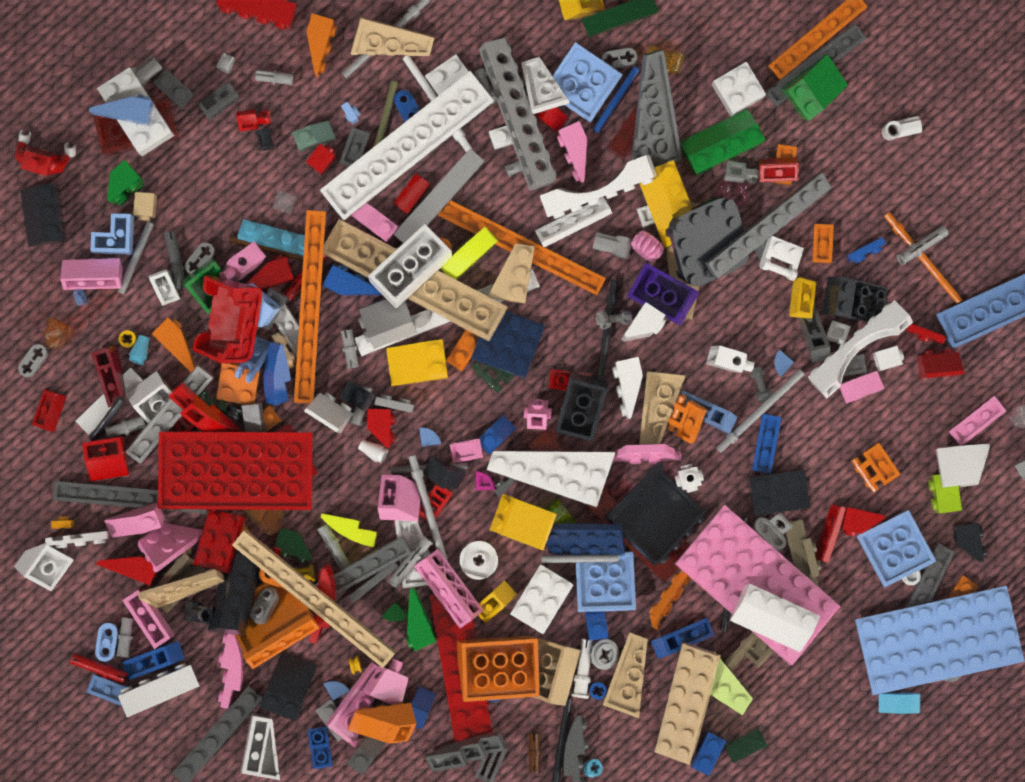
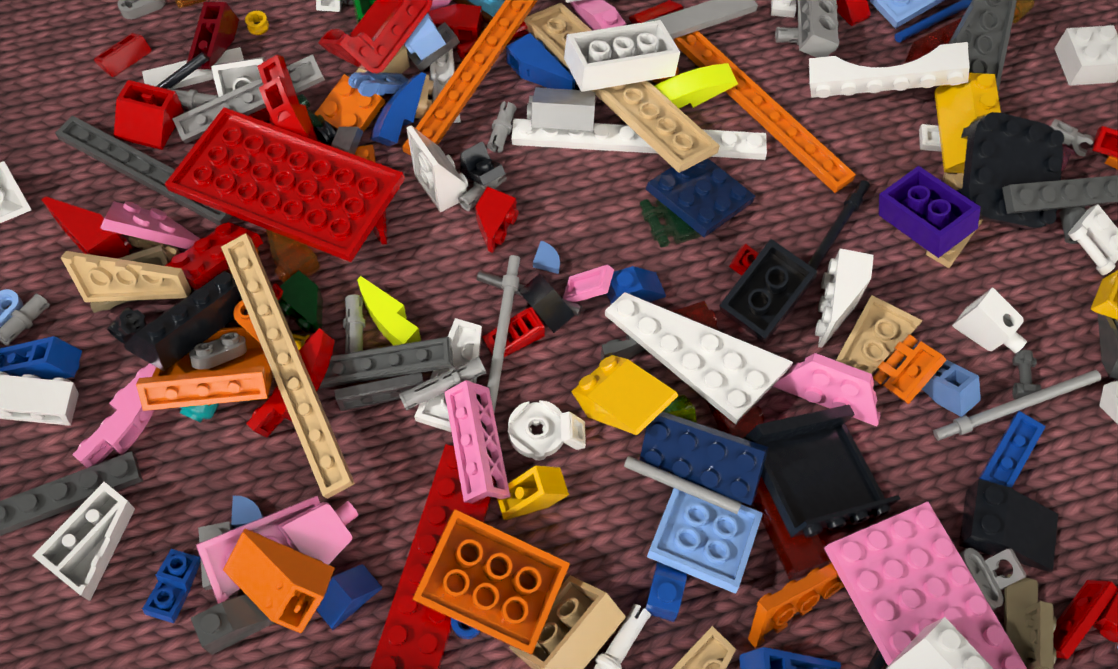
camera: 20 degrees right, 25 degrees down
(62, 522) = (46, 162): light orange plate -> none
(79, 539) = (56, 184): white wing -> none
(136, 521) = (143, 189): bright pink slope -> none
(140, 350) = (260, 36): medium azure cone -> none
(149, 620) = (63, 306): bright pink brick -> none
(174, 339) = (305, 34): orange slope -> none
(288, 686) = (182, 478): black slope -> none
(355, 665) = (291, 490): yellow bush -> none
(374, 451) = (470, 243): white cone -> none
(386, 401) = (528, 205): light grey plate -> none
(395, 613) = (385, 448): green tile -> none
(398, 499) = (468, 299): bright pink slope -> none
(417, 362) = (578, 172): yellow slope -> none
(419, 627) = (407, 467): green slope -> none
(463, 350) = (633, 187): orange plate -> none
(484, 482) = (591, 338): dark pink tile -> none
(501, 552) = (573, 430): none -> white tile
(514, 276) = (743, 125): tan wing -> none
(537, 414) = (694, 285): bright pink brick -> none
(541, 599) = (601, 517): white brick -> none
(573, 222) = (845, 106): white plate -> none
(575, 144) = (869, 35): bright pink slope -> none
(605, 320) = (837, 216): light grey bar -> none
(611, 654) = (668, 651): light grey gear -> none
(618, 245) = (884, 151): light grey piece -> none
(647, 246) = (926, 154): bright pink gear -> none
(647, 322) = (896, 218): white slope -> none
(681, 478) = (884, 448): white brick -> none
(722, 142) = (1066, 101): green slope -> none
(782, 363) = (1063, 364): medium blue tile -> none

